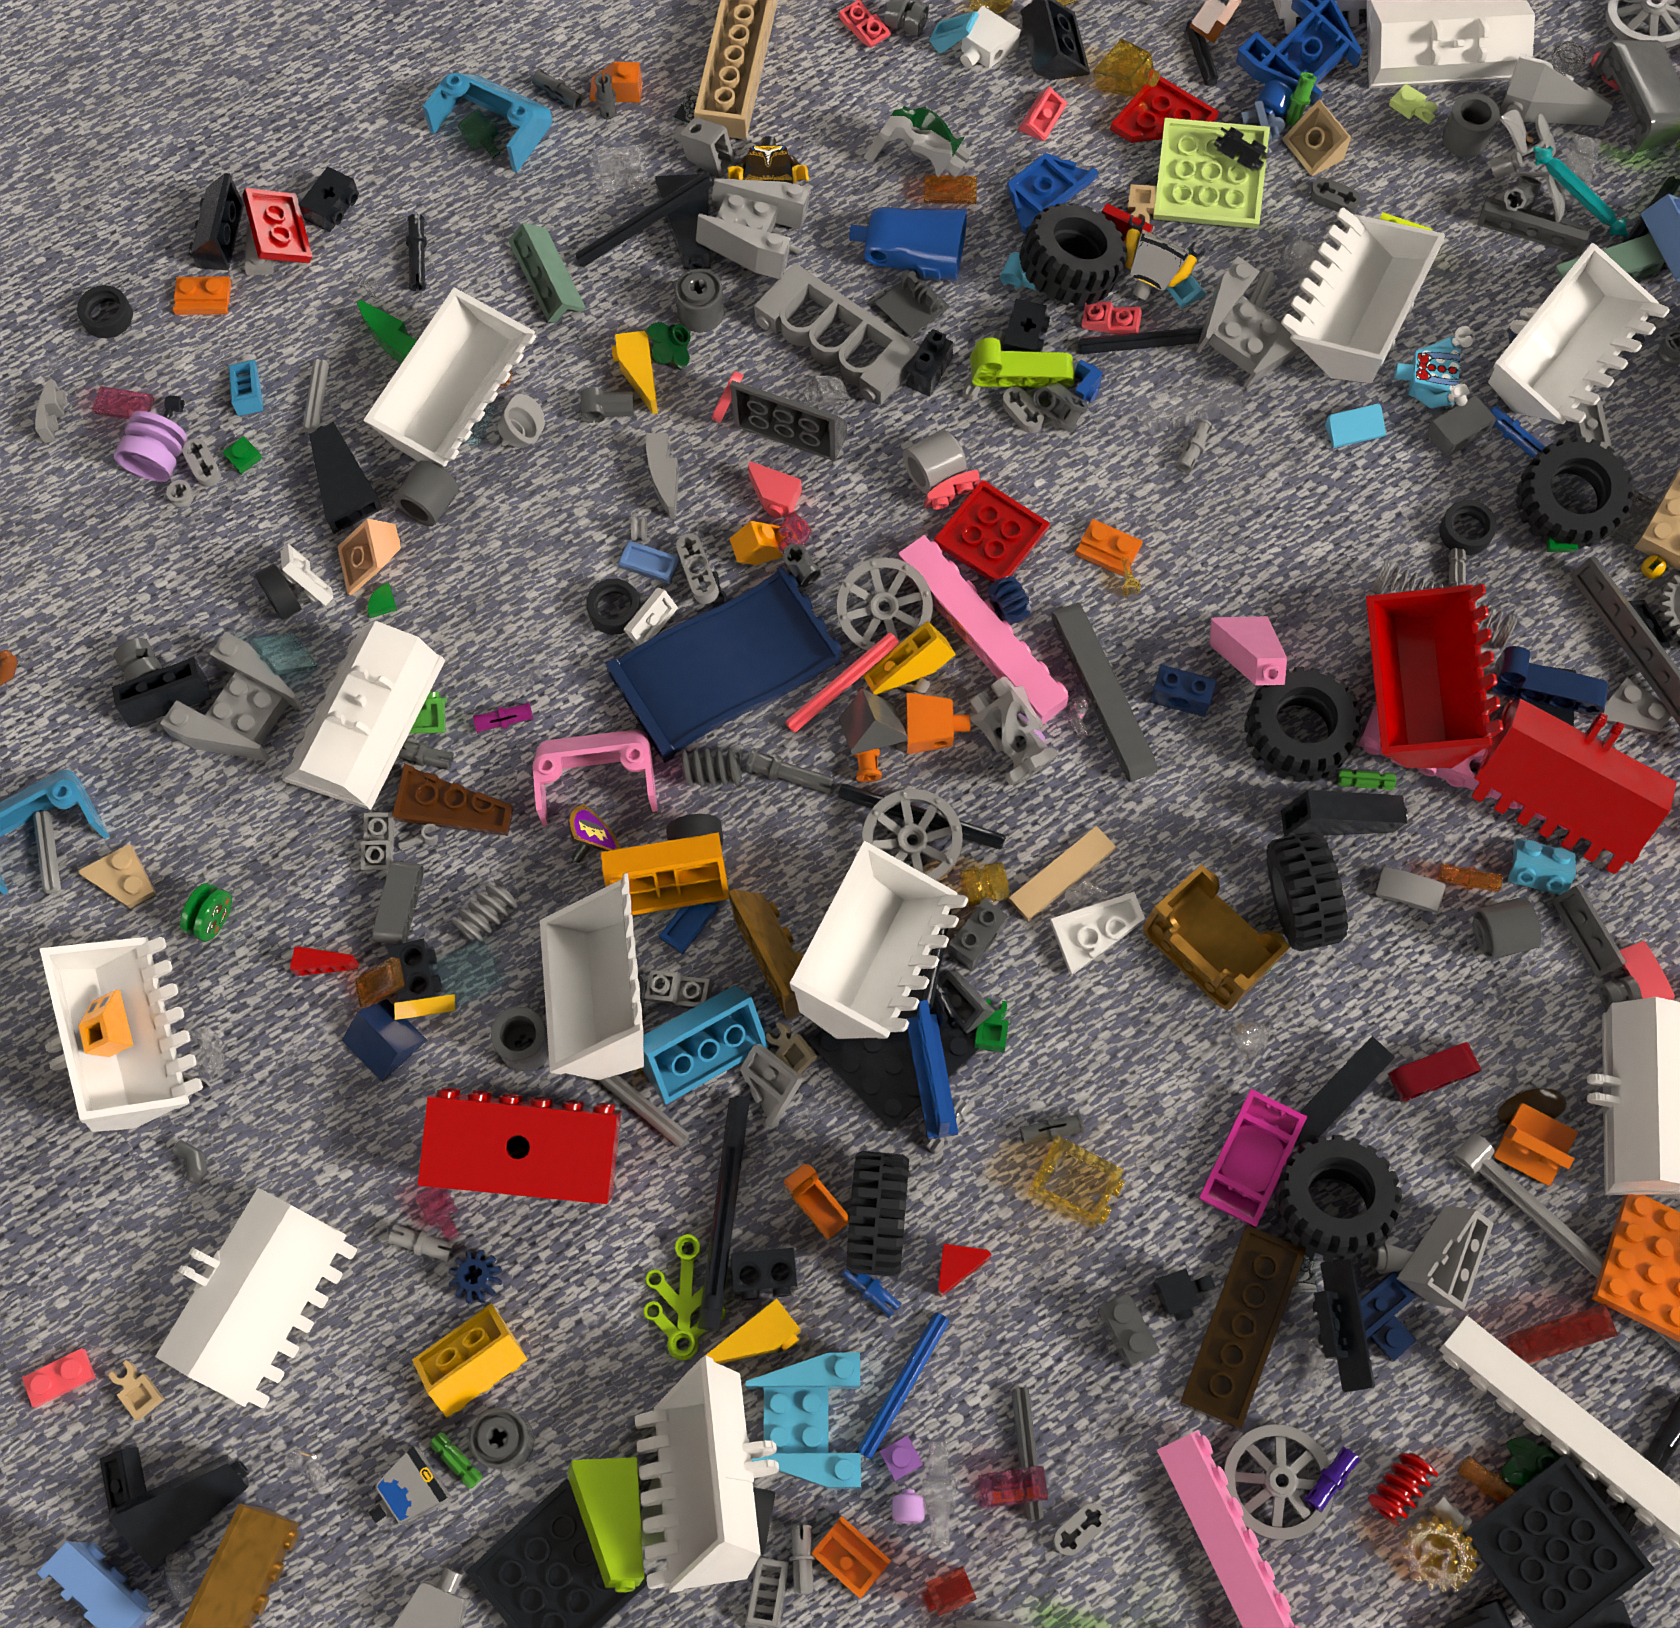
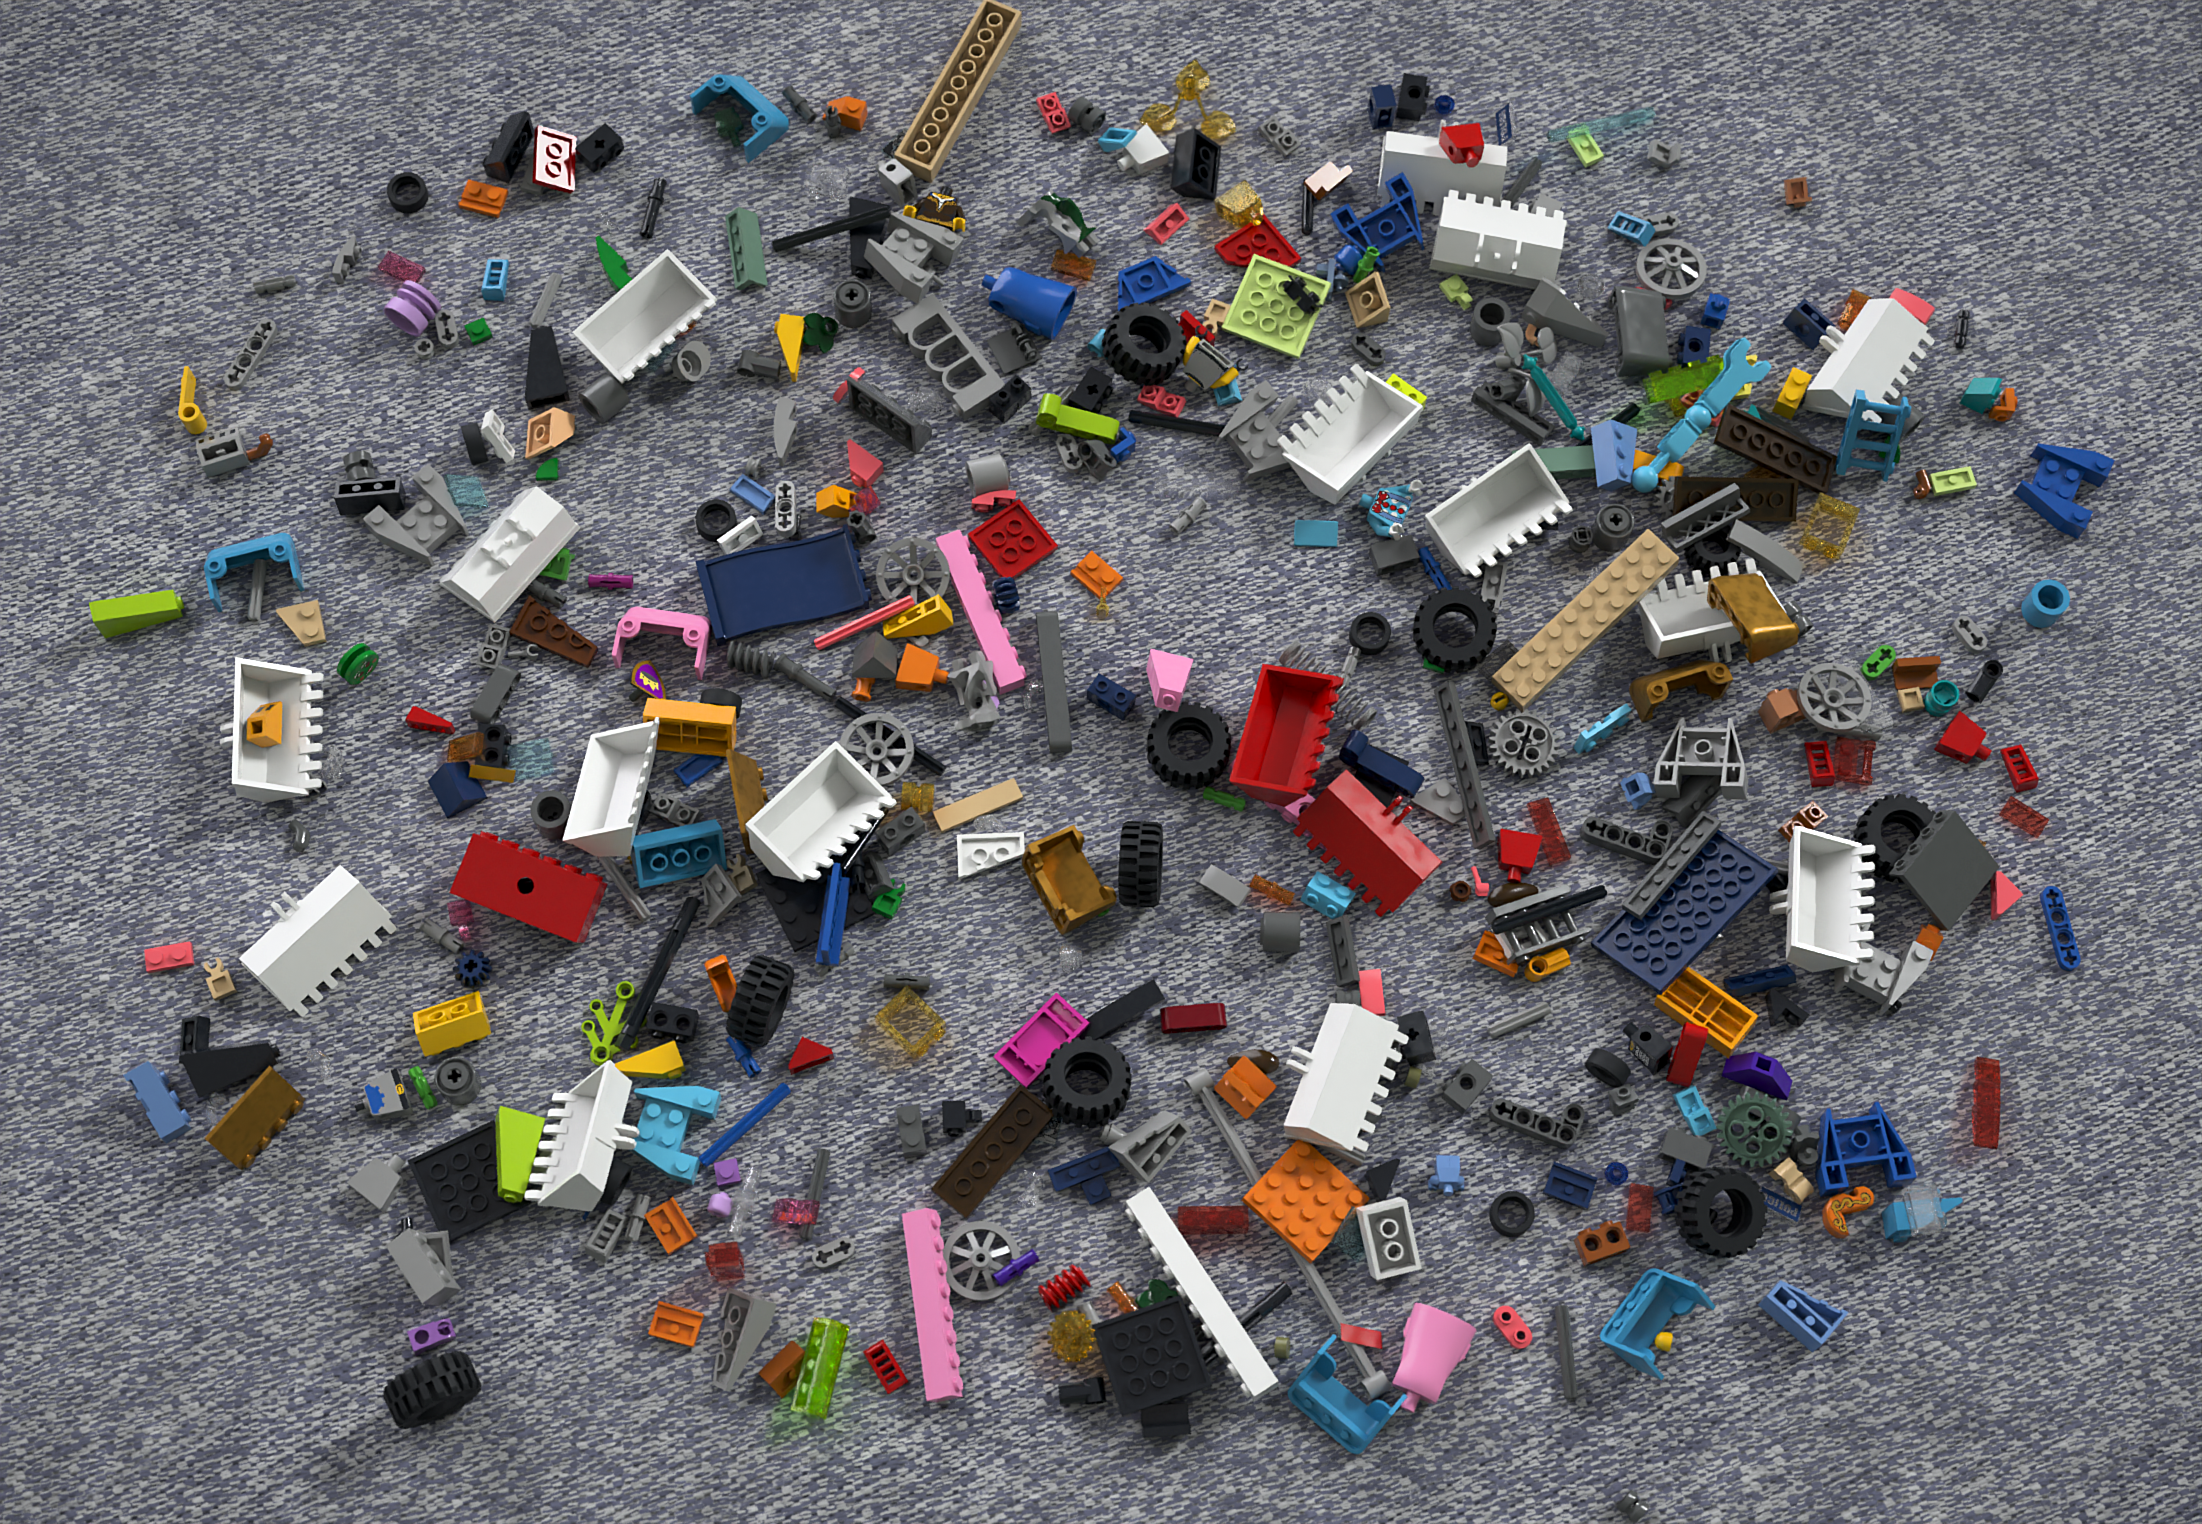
camera: 10 degrees right, 0 degrees up
(171, 404) = (437, 278): black hand -> none
(484, 911) = (554, 718): light grey piece -> none
(1343, 813) = (1196, 818): black slope -> none
(1343, 1325) = (1058, 1167): black bracket -> none

